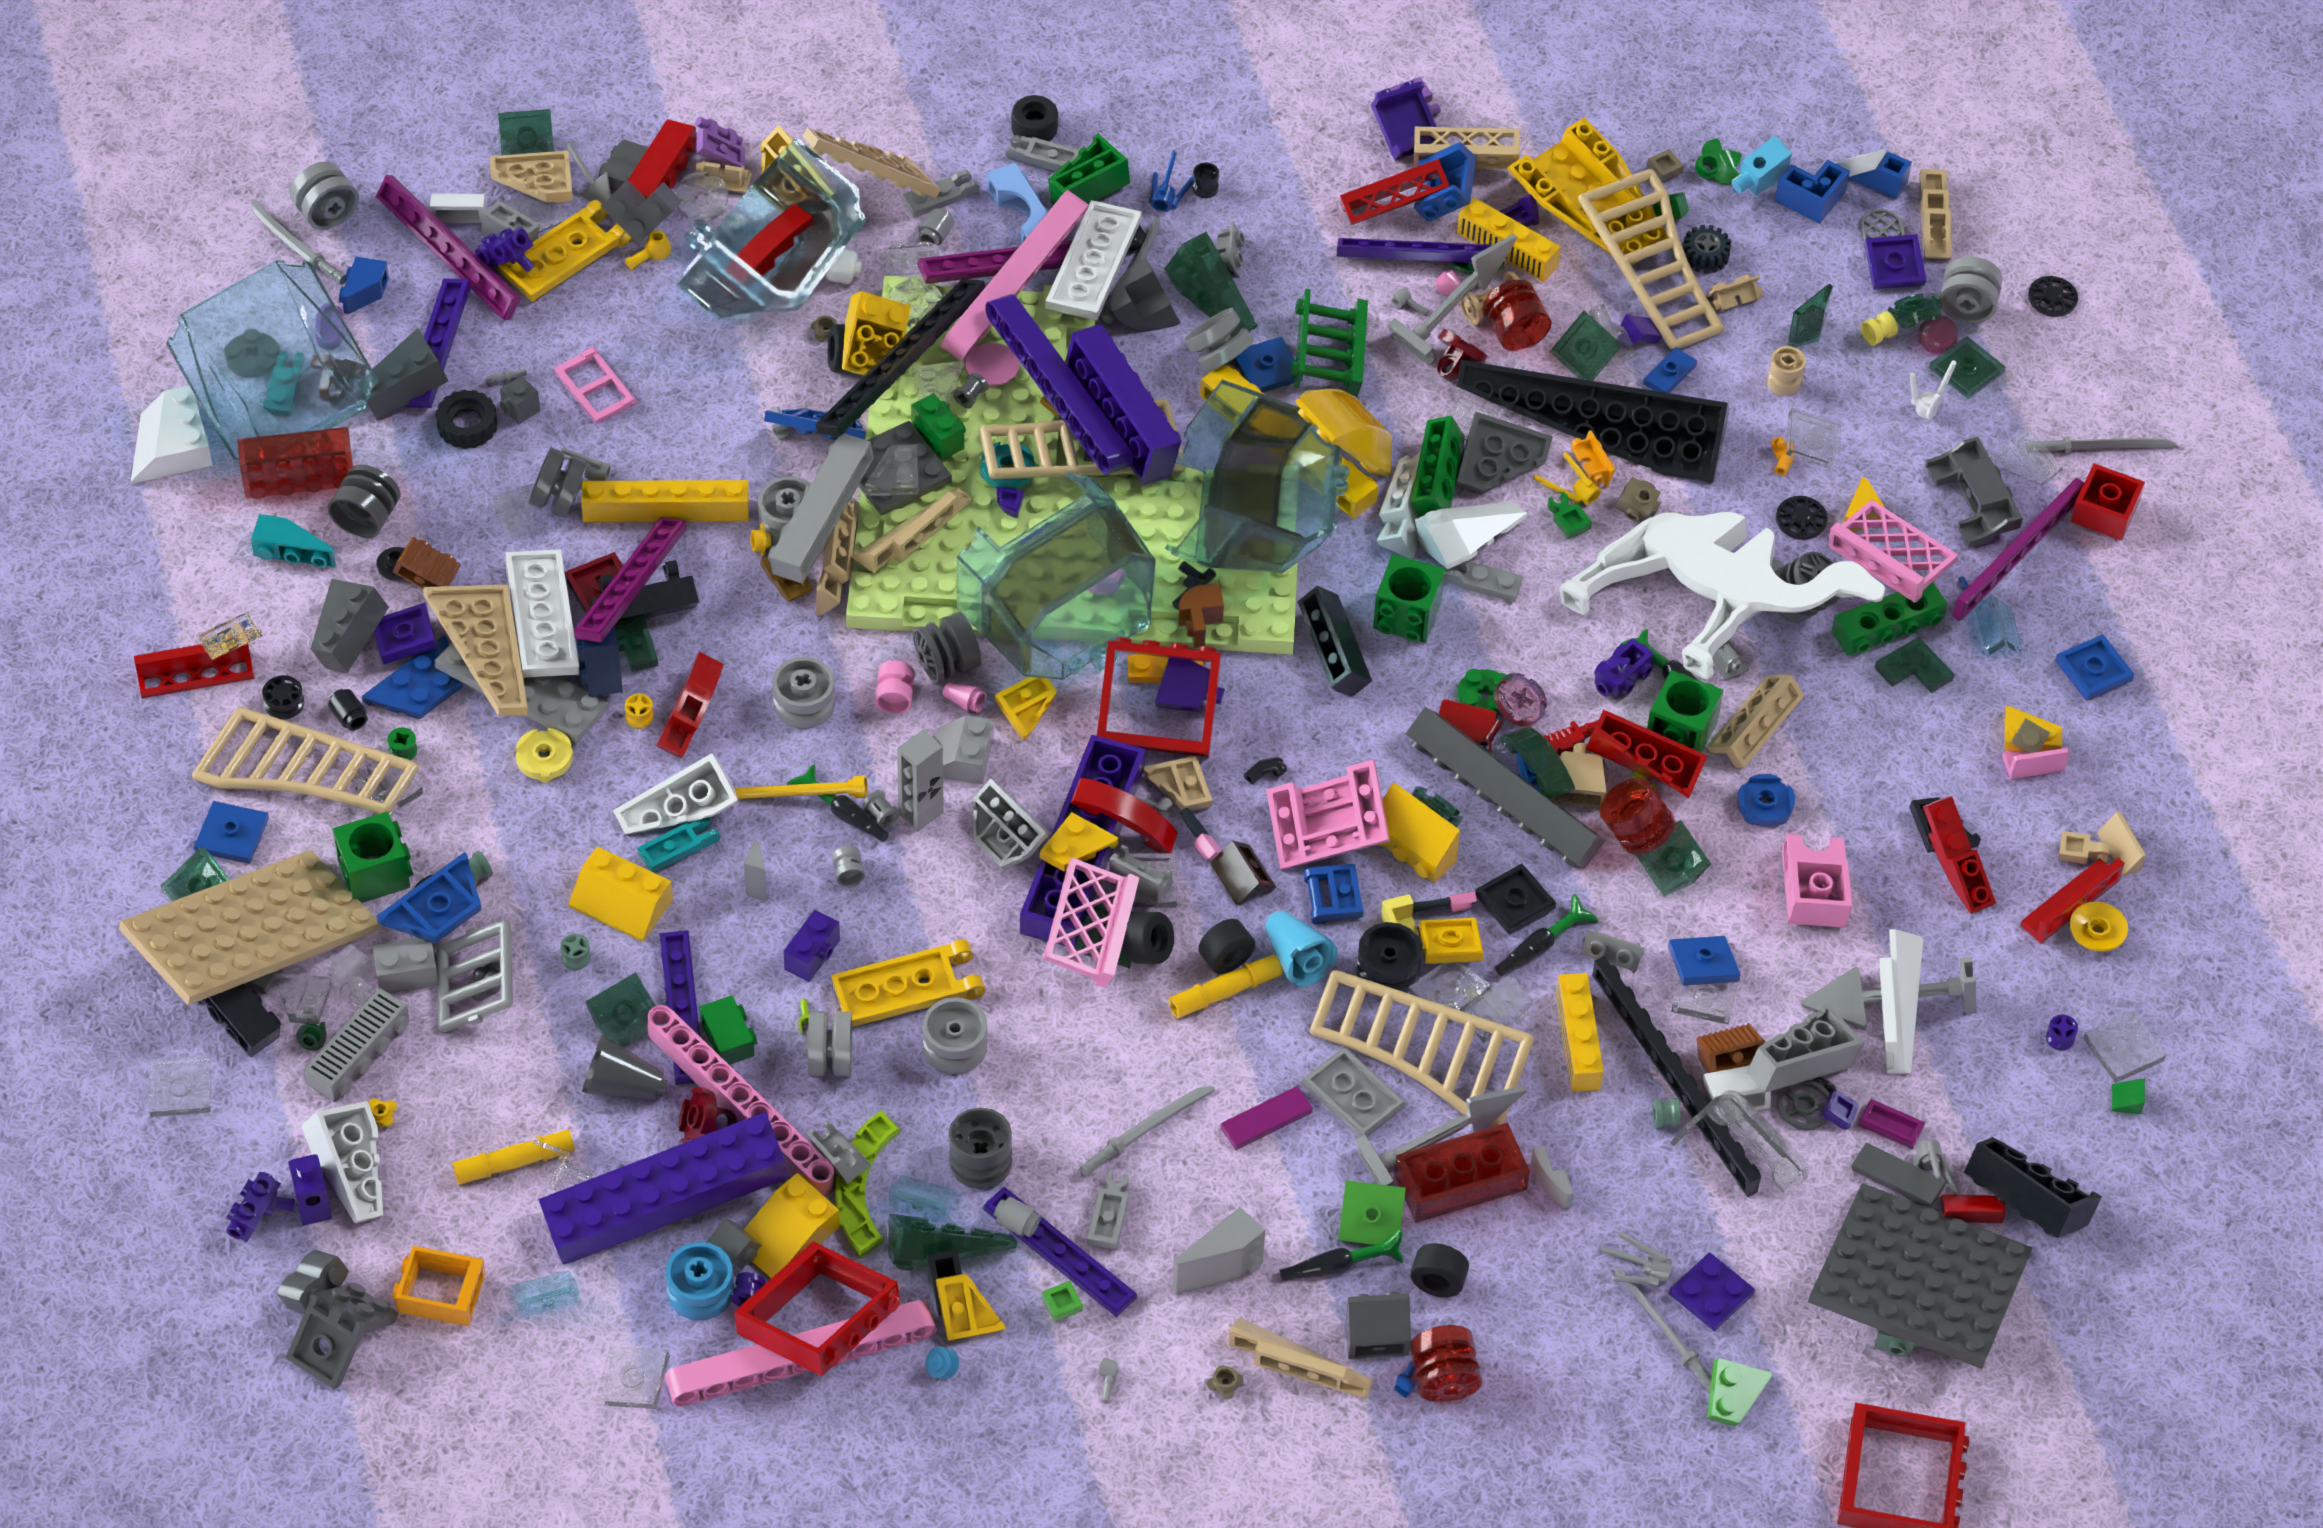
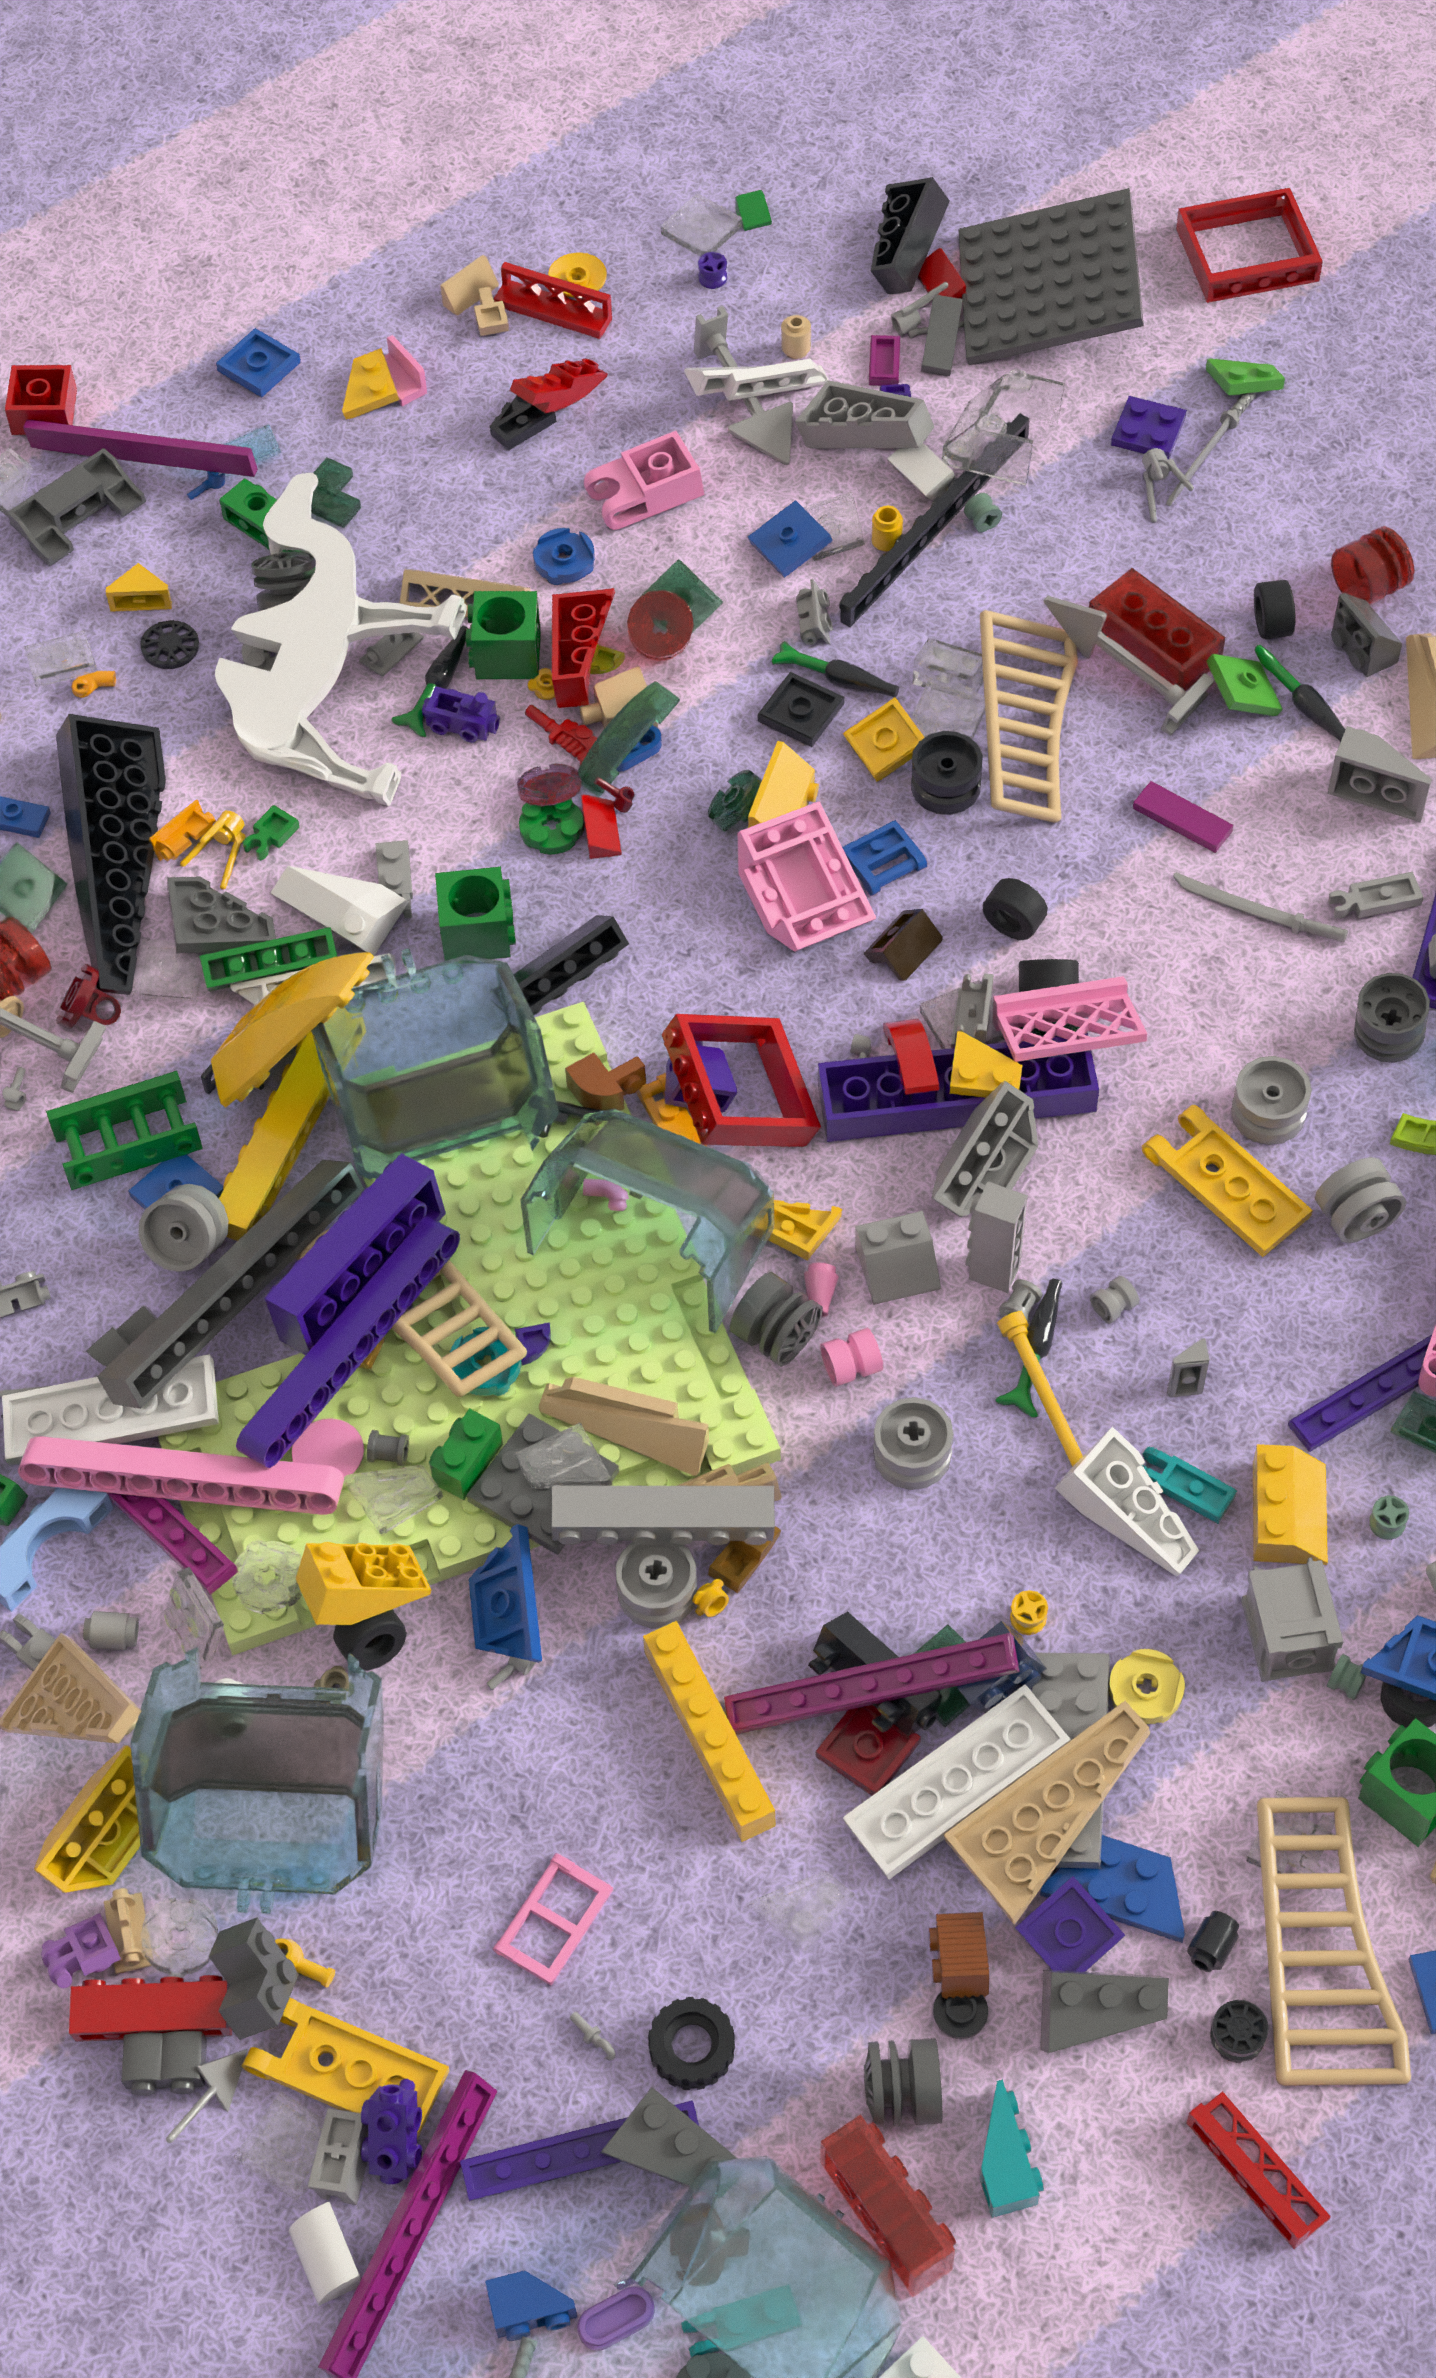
camera: 110 degrees left, 5 degrees up
(230, 635) = (1204, 2128): clear tile -> none
(399, 736) = (1223, 1859): green wheel -> none
(519, 400) = (634, 1987): dark grey brick -> none
(525, 132) = (162, 2226): clear green slope -> none
(530, 842) = (1291, 1620): none -> light grey container
(535, 174) = (230, 2169): tan plate -> none
(561, 483) = (758, 1853): dark grey wheel -> none
(594, 470) = (699, 1841): light grey plant -> none
(690, 705) = (981, 1551): red slope -> none
(727, 1029) = (1394, 1317): green brick -> none
(775, 239) = (248, 1801): red slope -> none
(805, 1015) = (1327, 1258): lime hand -> none
(812, 945) = (1241, 1284): dark purple brick -> none
(899, 358) = (389, 1524): black plate -> none
(1138, 326) = (230, 1284): none -> dark grey brick
(1181, 782) = (821, 1036): tan wing -> none
(1204, 843) = (884, 991): piece -> none
(1205, 280) = (79, 1291): clear green wedge -> none
(1225, 986) = (1061, 907): yellow piece -> none
(1263, 766) = (754, 976): black arm -> none
(1300, 948) = (976, 852): medium azure cone -> none
(1353, 1093) = (1108, 759): light grey tile -> none
(1399, 911) = (884, 793): light yellow panel -> none
(1404, 1383) = (1399, 609): blue hand -> none
(1456, 902) = (839, 764): piece -> none
(1505, 787) = (673, 758): dark grey brick -> none
(1554, 1182) = (1113, 567): light grey slope -> none
(1579, 1032) = (934, 601): yellow brick -> none
(1638, 500) = (225, 771): dark tan brick -> none
(1677, 1028) = (886, 527): none -> yellow brick
(1728, 1048) = (882, 483): dark orange brick -> none
(1879, 560) = (225, 534): bright pink fence -> none
(1941, 1055) = (796, 336): none -> tan brick
(2030, 737) = (387, 367): dark tan plate -> none

